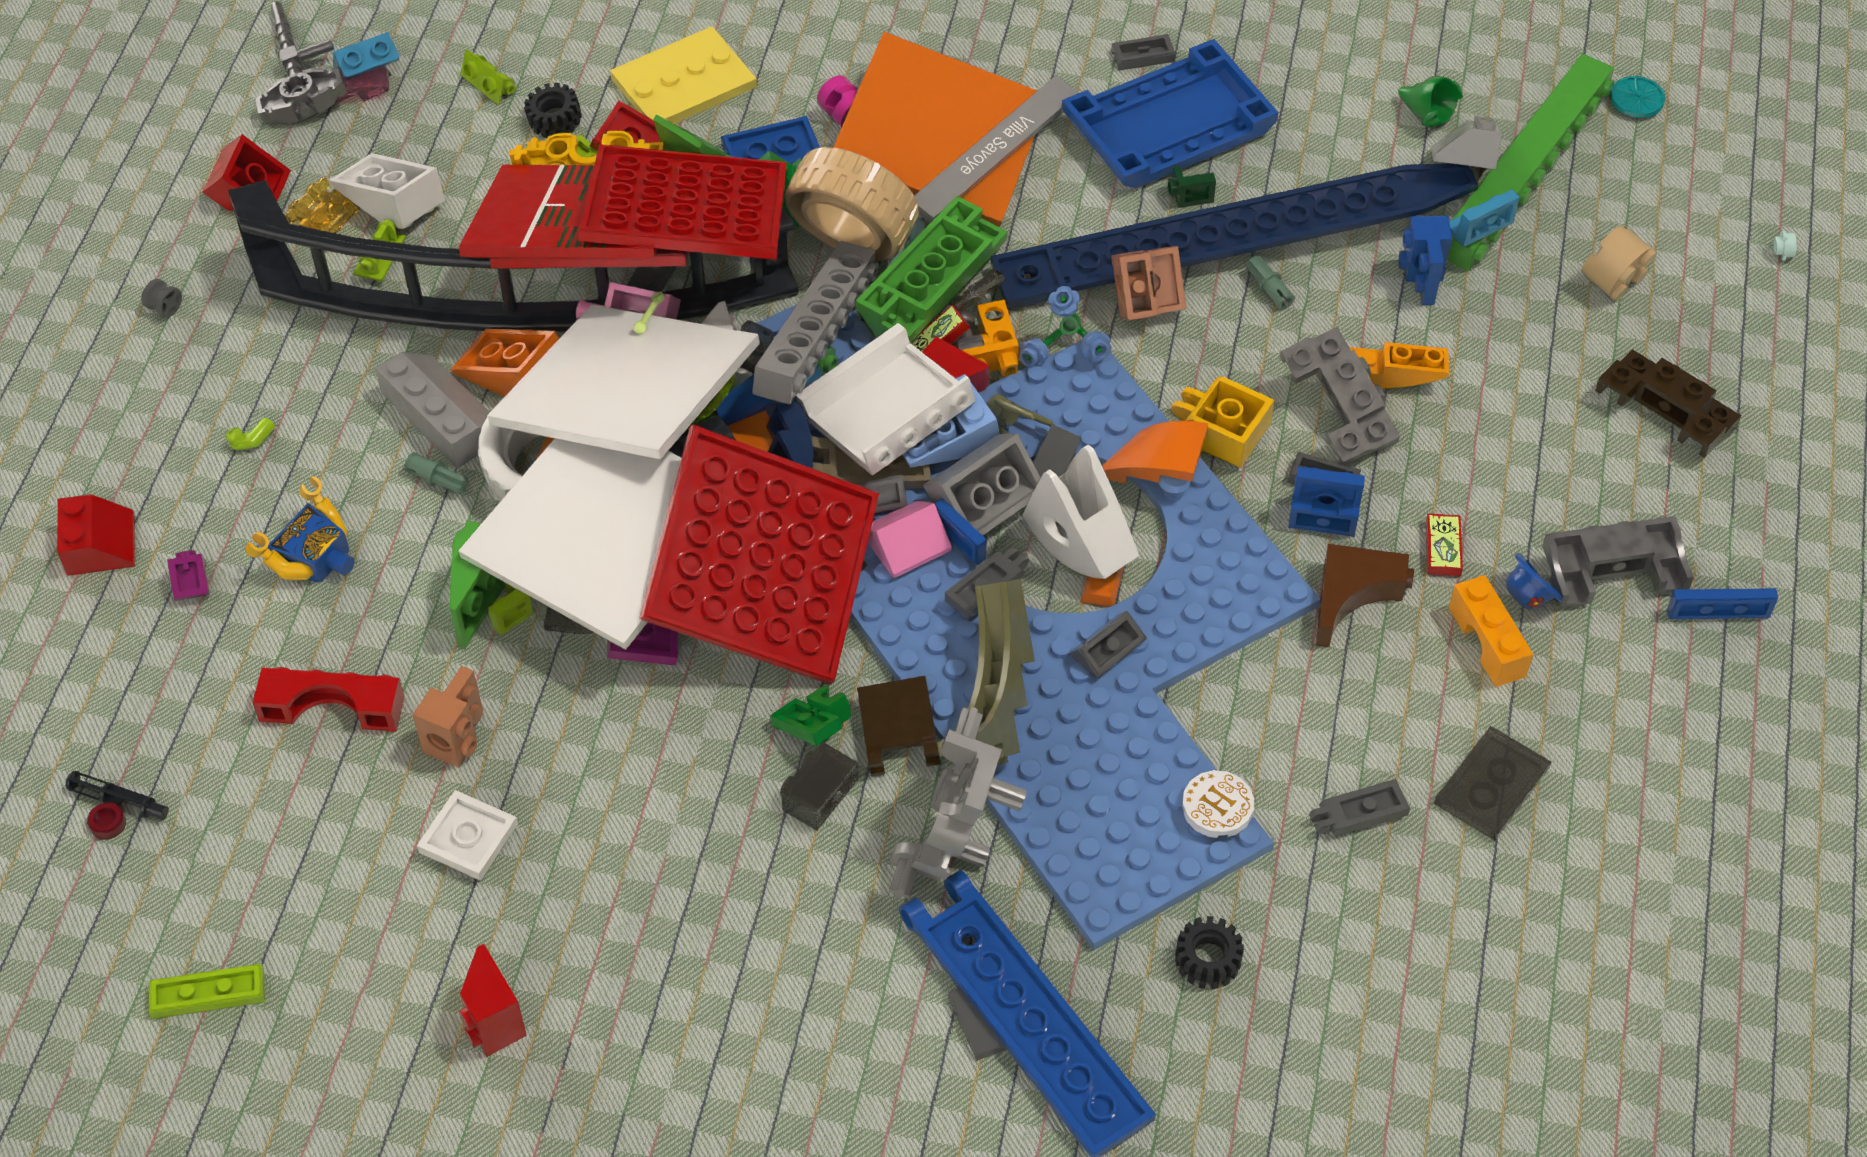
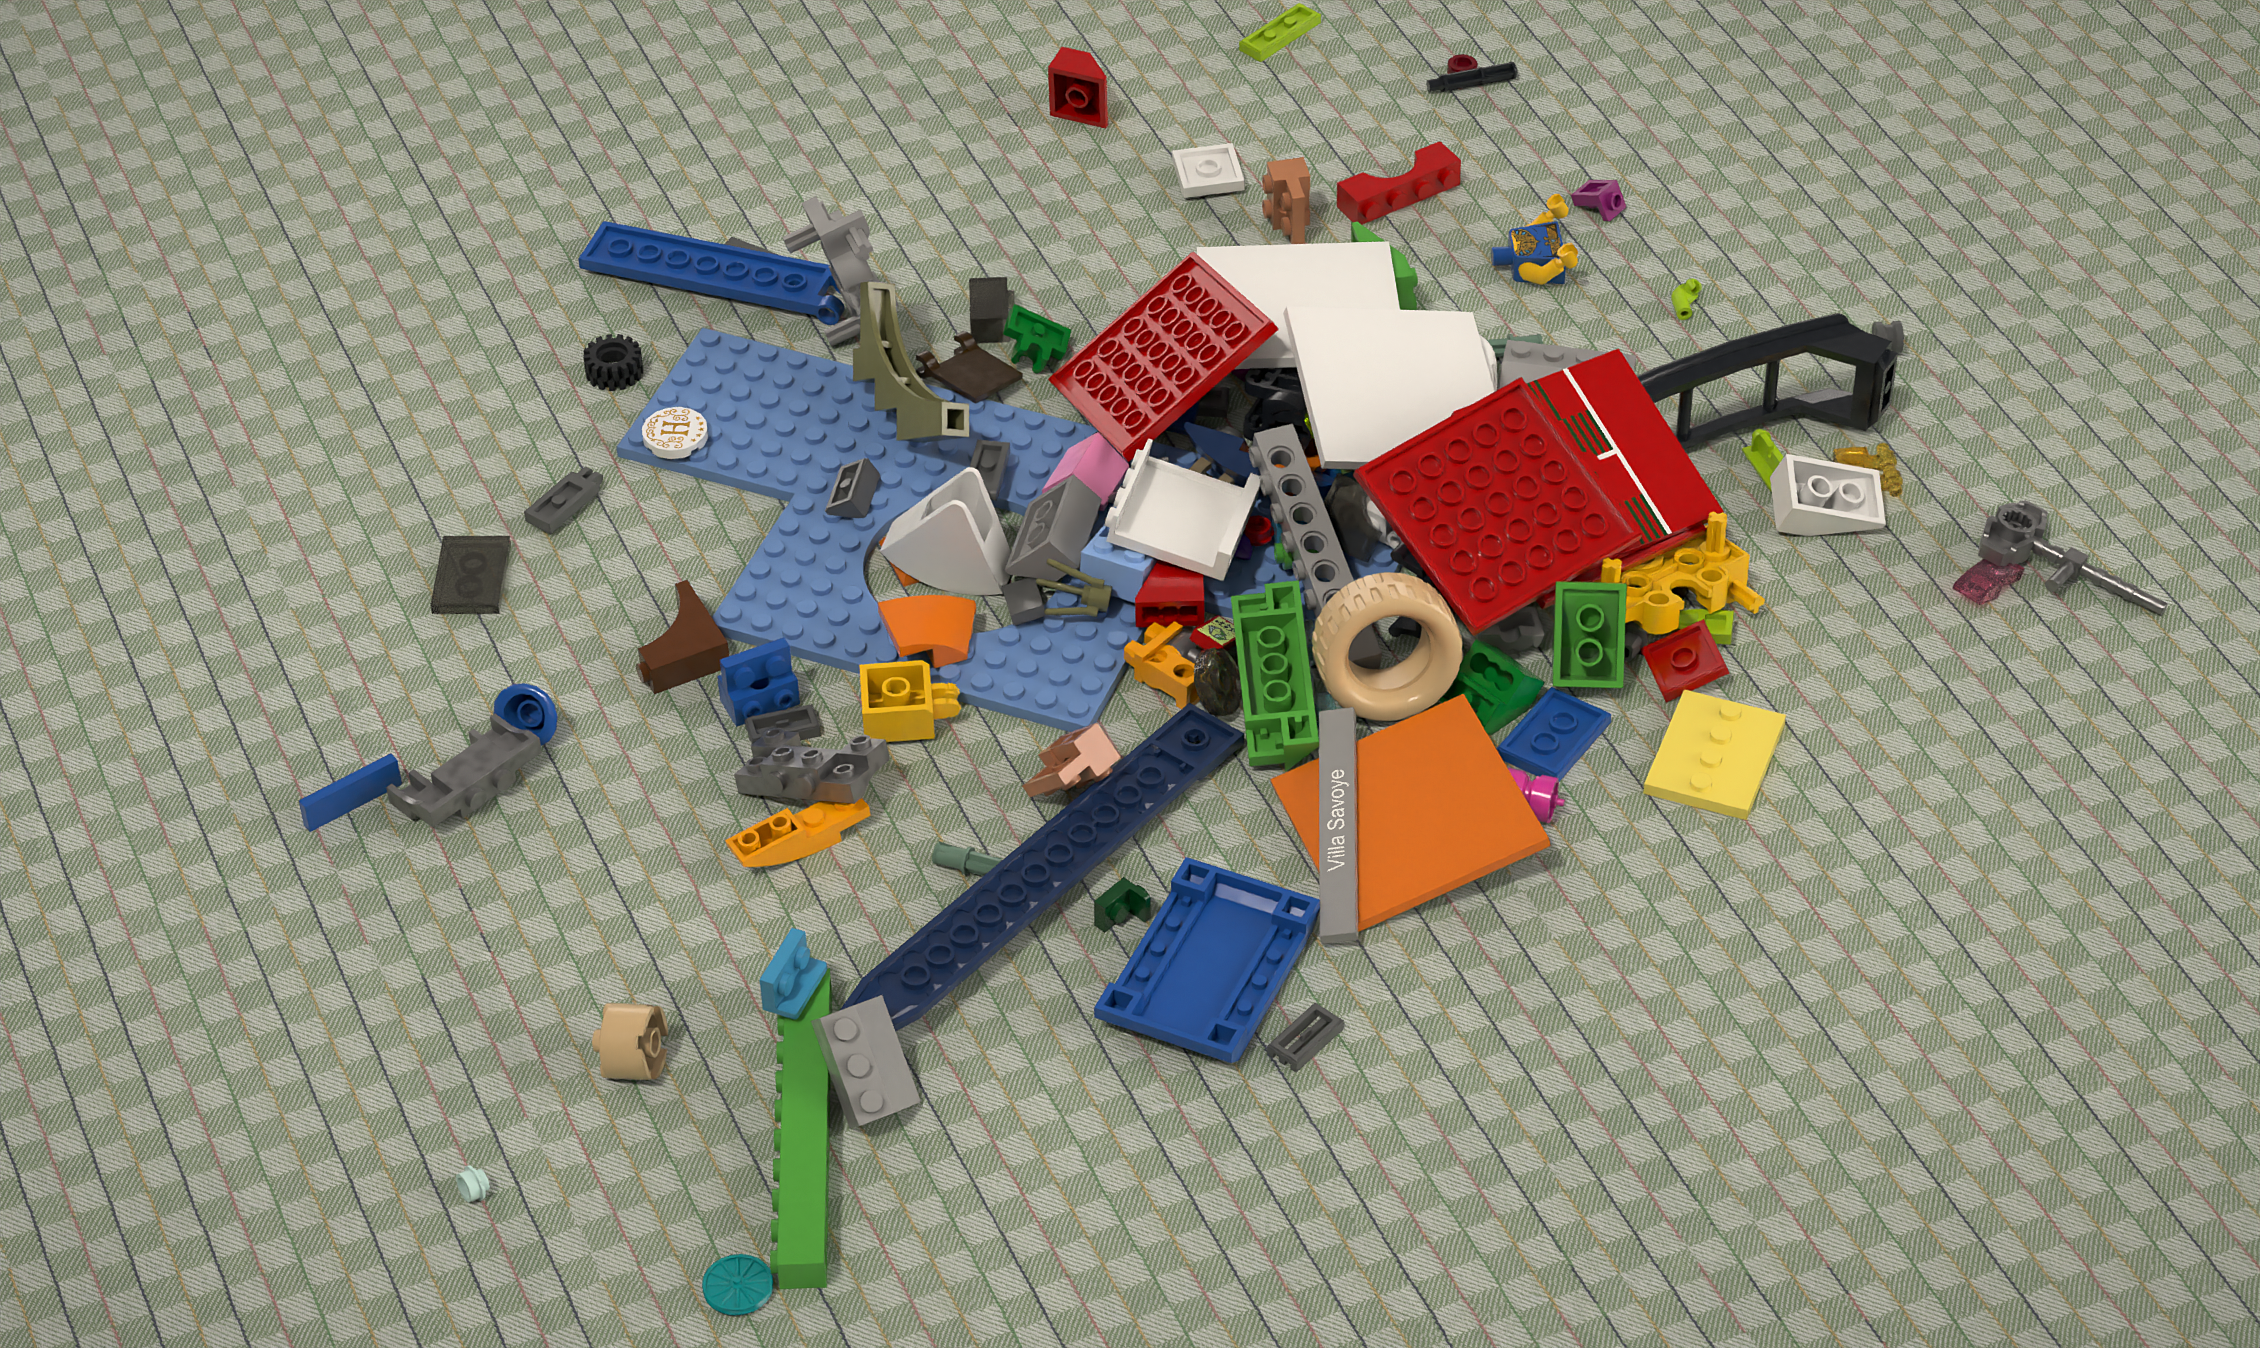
camera: 145 degrees right, 10 degrees down
(94, 535) = (1700, 180): red slope -> none
(244, 164) = (1956, 449): red slope -> none
(365, 55) = (2009, 590): dark azure bracket -> none
(485, 77) = (1871, 644): lime hinge -> none
(548, 99) = (1793, 663): black tyre -> none
(962, 533) = (1027, 486): blue tile -> none
(1065, 304) = (1116, 679): medium blue plant -> none
(1426, 254) = (830, 934): blue brick -> none
(1432, 99) = (955, 1128): green hat -> none
(1444, 544) = (633, 725): tile -> none
(1504, 649) = (565, 671): light orange arch -> none
(1673, 396) = (501, 954): dark brown bracket -> none

